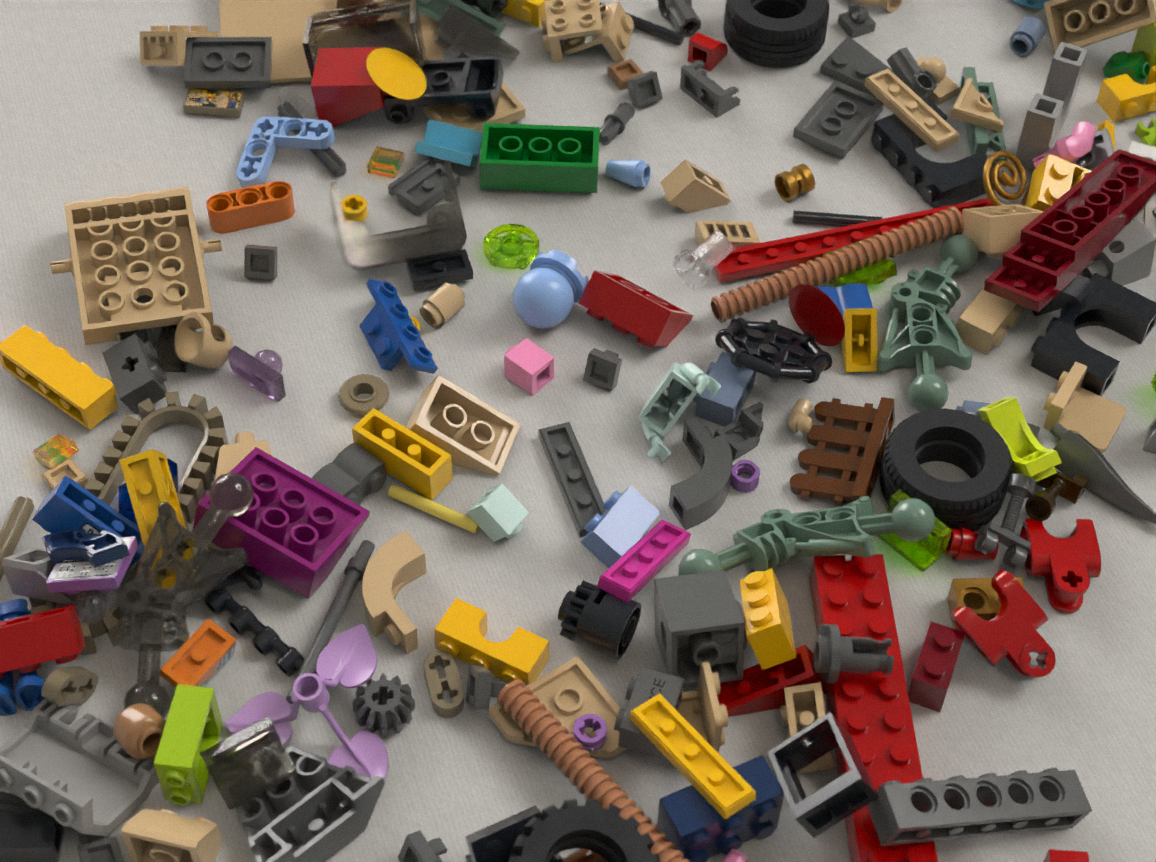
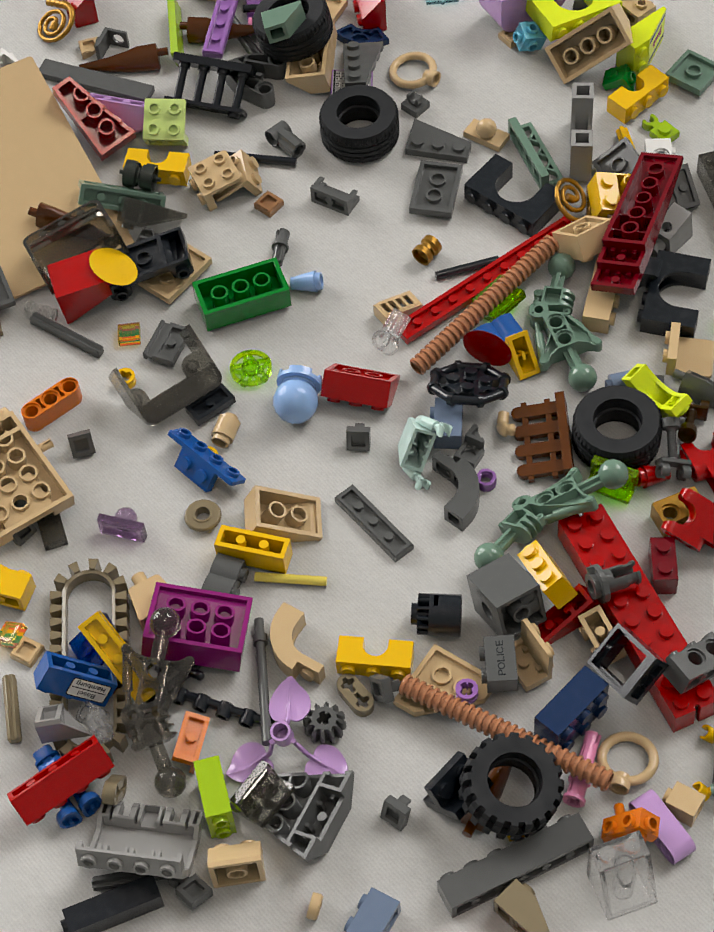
camera: 15 degrees left, 5 degrees up
(79, 575) = (92, 704): tile -> none
(88, 547) = (89, 692): dark blue tile -> none
(135, 372) = (29, 550): dark grey brick -> none
(139, 730) = (181, 800): medium nougat head -> none
(203, 348) = (76, 522): tan helmet -> none
(313, 135) = (42, 343): light blue beam -> none
(451, 143) = (171, 304): medium azure panel -> none
(498, 513) = (337, 566): light aqua brick -> none
(529, 366) = (307, 454): bright pink brick -> none
(619, 526) = (422, 546): brick -> none
(644, 89) = (289, 212): dark grey tile -> none
(644, 560) = (449, 564): dark pink tile -> none
(693, 188) = (359, 280): tan slope -> none
(693, 756) = (542, 682): yellow tile -> none
(707, 50) = (318, 166): red brick -> none
(909, 72) = (480, 142): dark grey piece -> none
(912, 110) = (486, 166): tan tile -> none
(975, 108) = (530, 151): tan tile -> none
(1027, 36) = (540, 76): sand blue brick -> none
(1072, 147) = (608, 160): bright pink arm -> none

